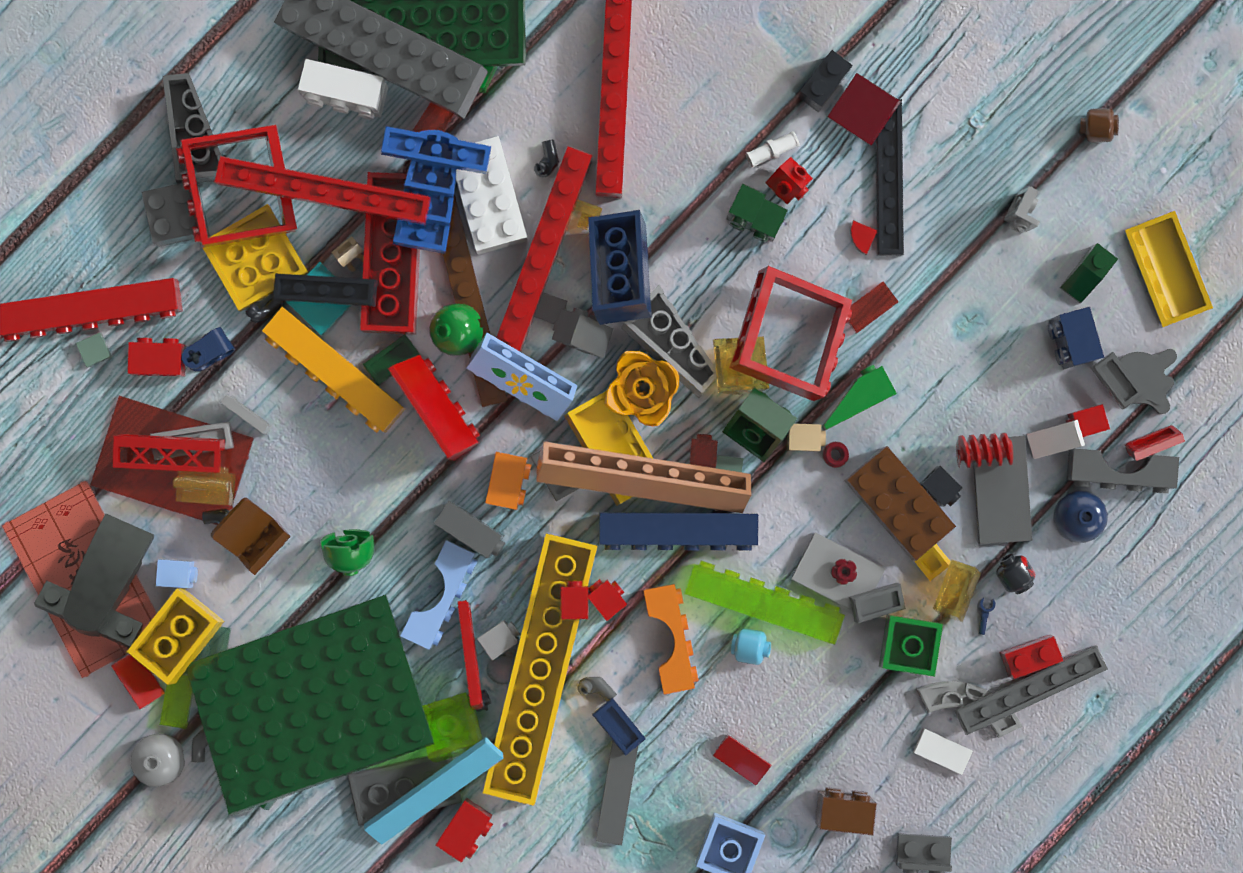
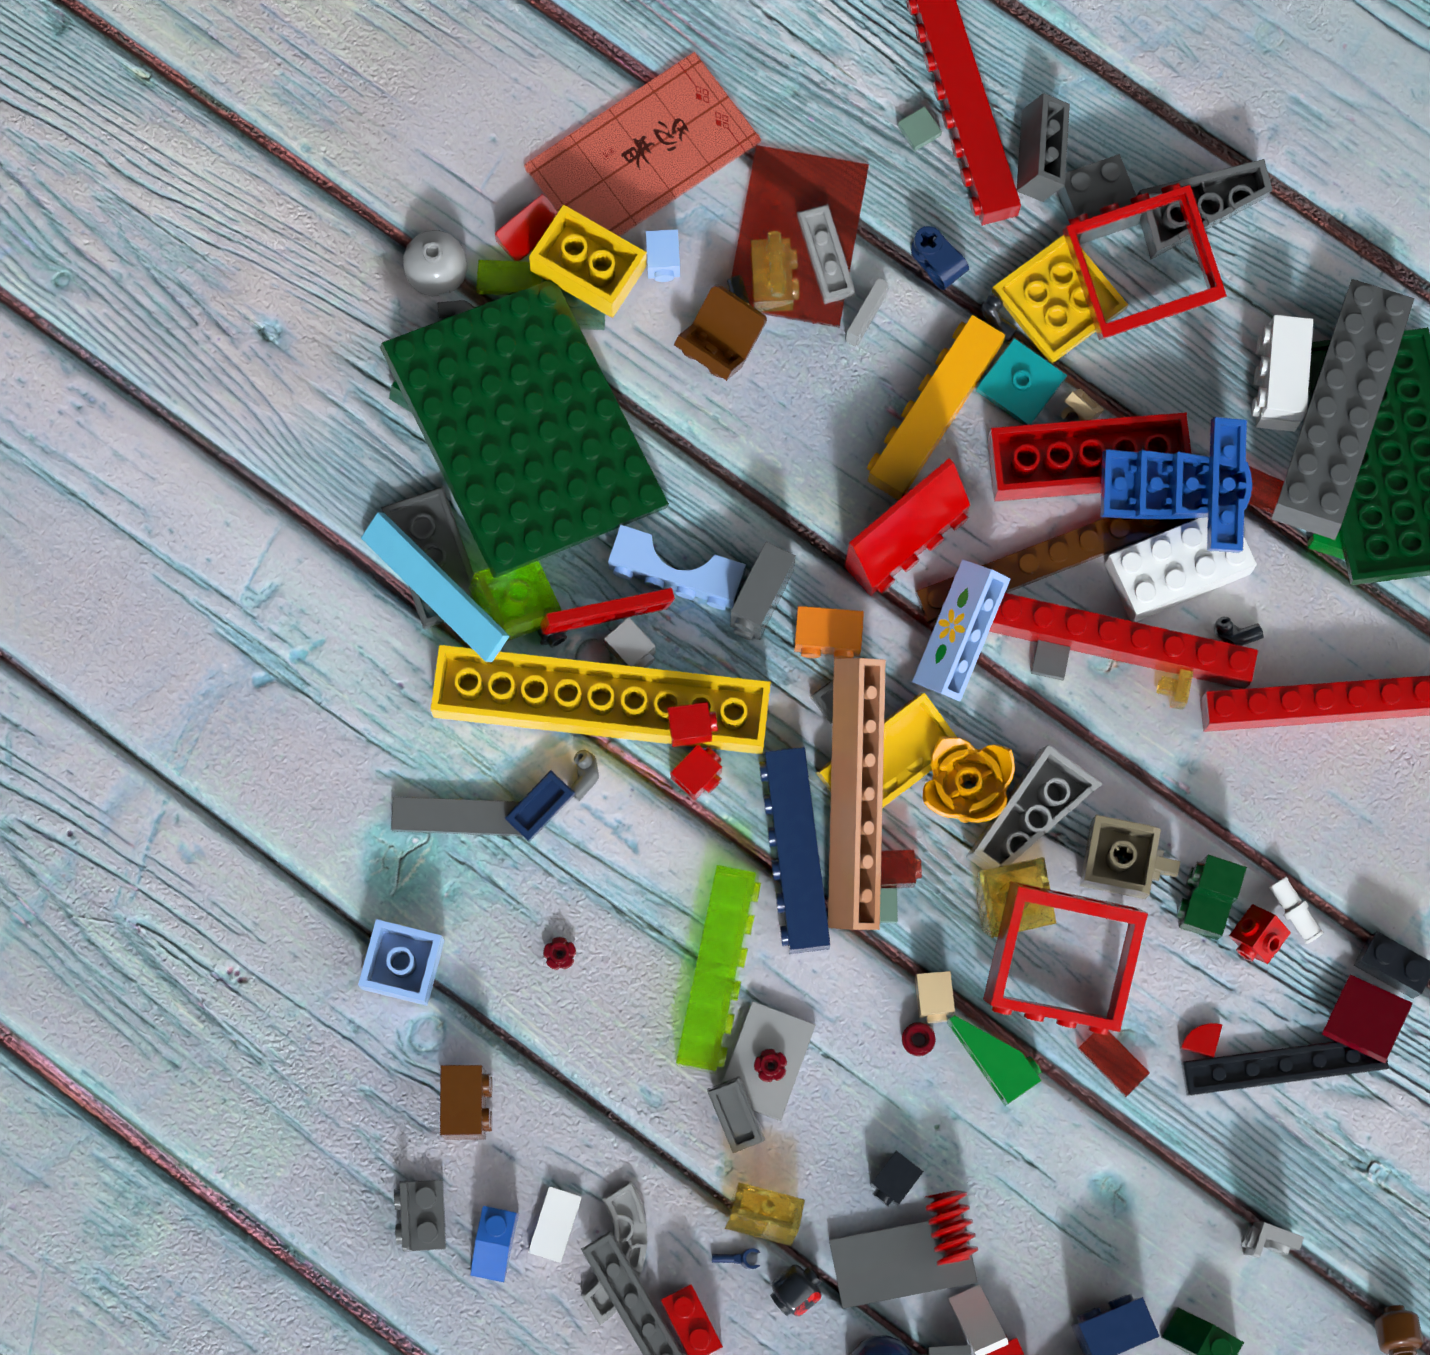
camera: 85 degrees right, 10 degrees down
(102, 584) = (641, 170): pearl dark grey slope -> none
(126, 252) = (1043, 147): none -> dark grey brick
(156, 358) = (919, 198): red brick -> none
(167, 442) = (820, 227): red fence -> none
(322, 190) = (1155, 357): red plate -> none
(325, 290) = (1033, 381): black tile -> none
(348, 552) = (715, 452): green cylinder -> none
(395, 353) = (973, 482): dark green tile -> none
(456, 329) = (1008, 544): green cylinder -> none
(464, 830) = (389, 634): red brick -> none
(582, 332) = (1027, 697): dark grey brick -> none
(619, 267) = (1116, 730): dark blue brick -> none
(676, 672) = (617, 870): orange arch -> none
(722, 261) = (1138, 845): none -> dark tan hinge
(733, 730) = (566, 959): none -> dark red plate
(742, 759) = (515, 967): red slope -> none
(750, 646) = (659, 958): medium azure head -> none
(759, 424) = (943, 931): dark green brick -> none
(900, 503) = (867, 1127): reddish brown brick -> none
(910, 645) = (687, 1162): green brick -> none
(933, 562) = (797, 1179): yellow plate -> none
(951, 799) = (494, 1243): none -> slope

